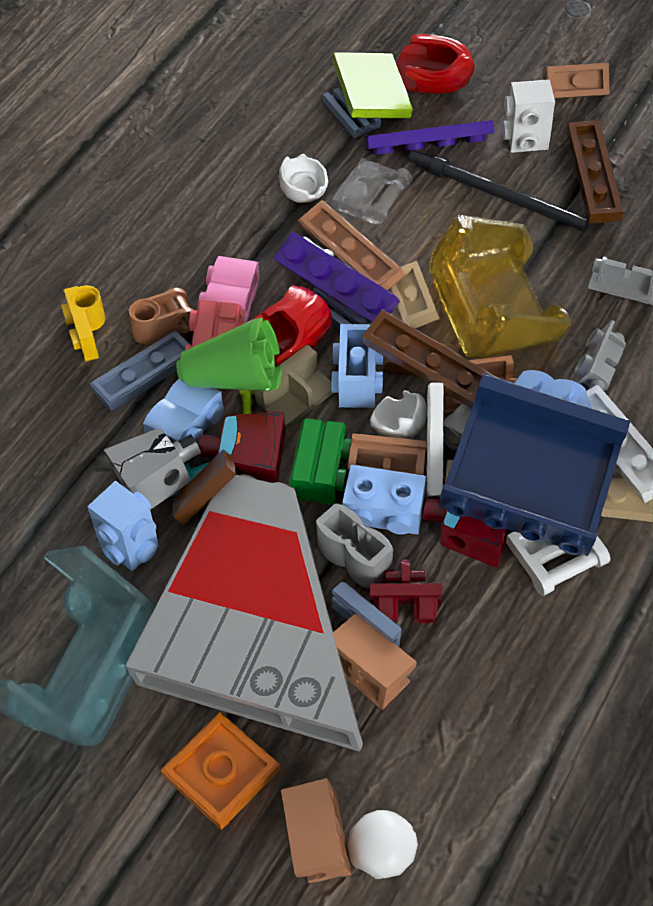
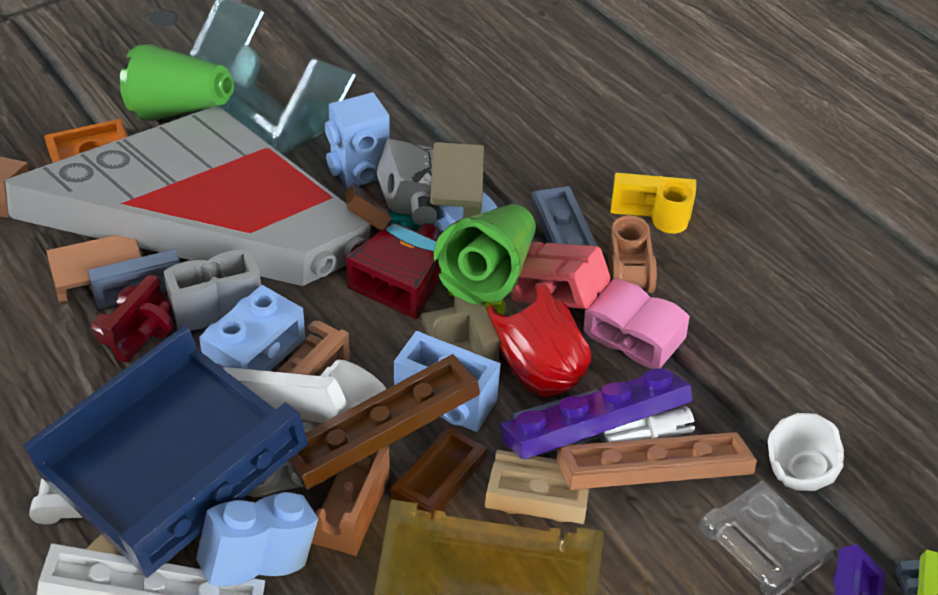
camera: 110 degrees right, 10 degrees down
(117, 707) = (171, 83): none -> bright green cone
(167, 407) = (457, 176): none -> dark tan panel
(319, 461) = (350, 307): green brick -> none

